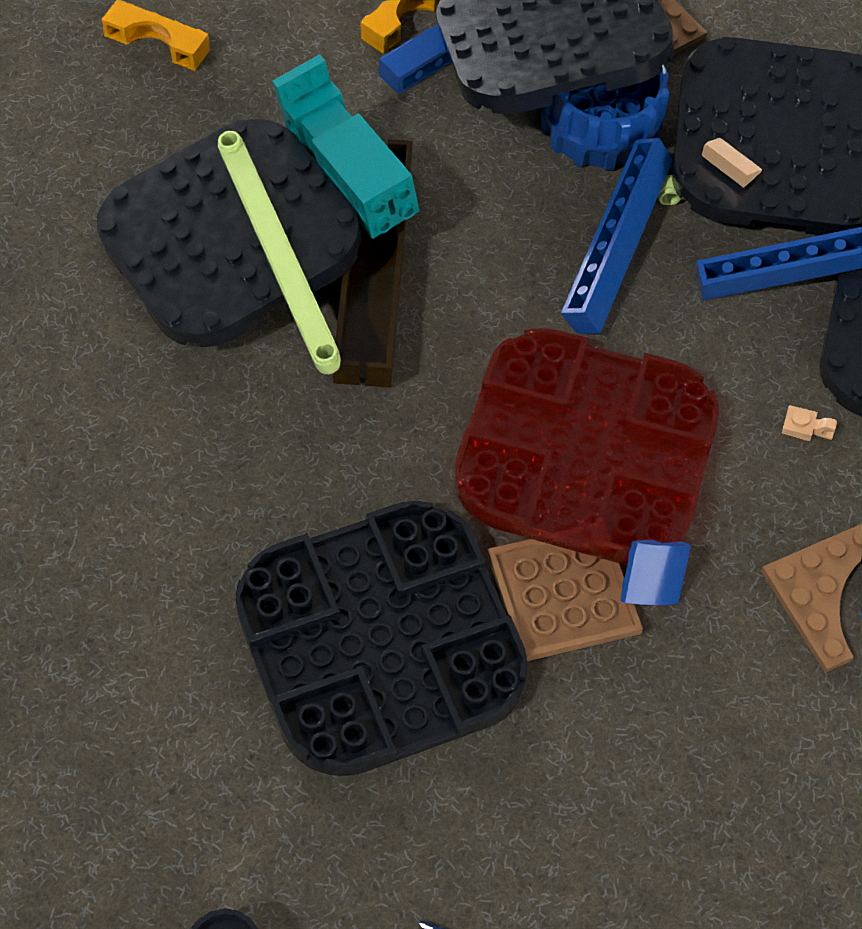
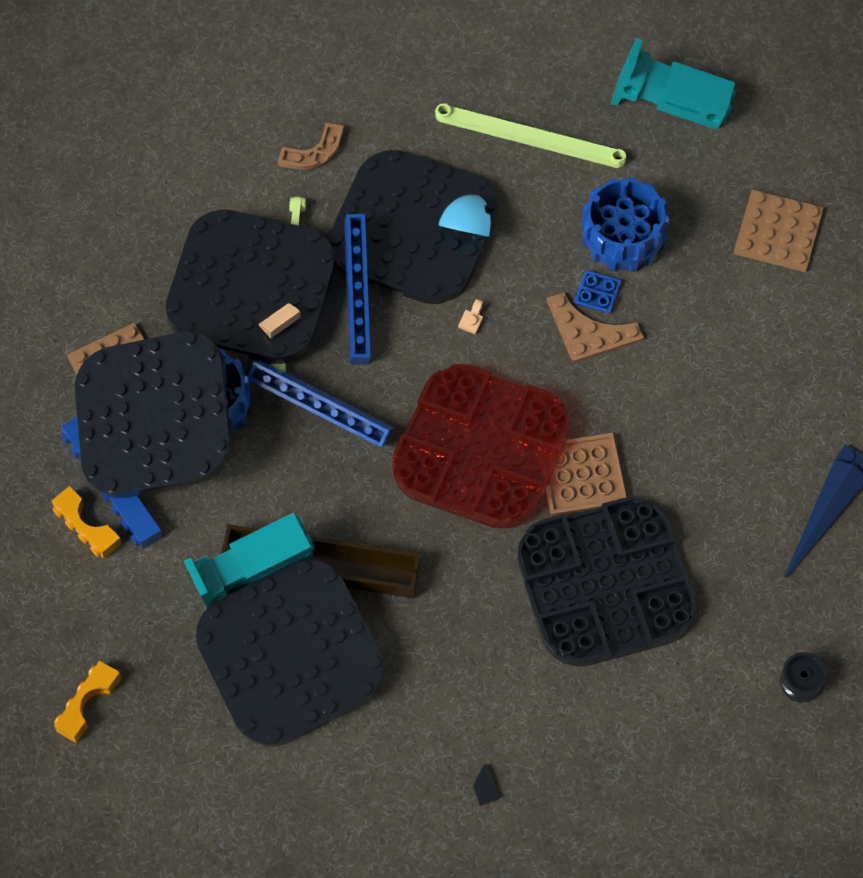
camera: 80 degrees left, 5 degrees up
(38, 493) = (484, 787): none -> black tile
(279, 253) = (325, 612): yellowish green piece -> none
(655, 572) = (581, 418): slope -> none

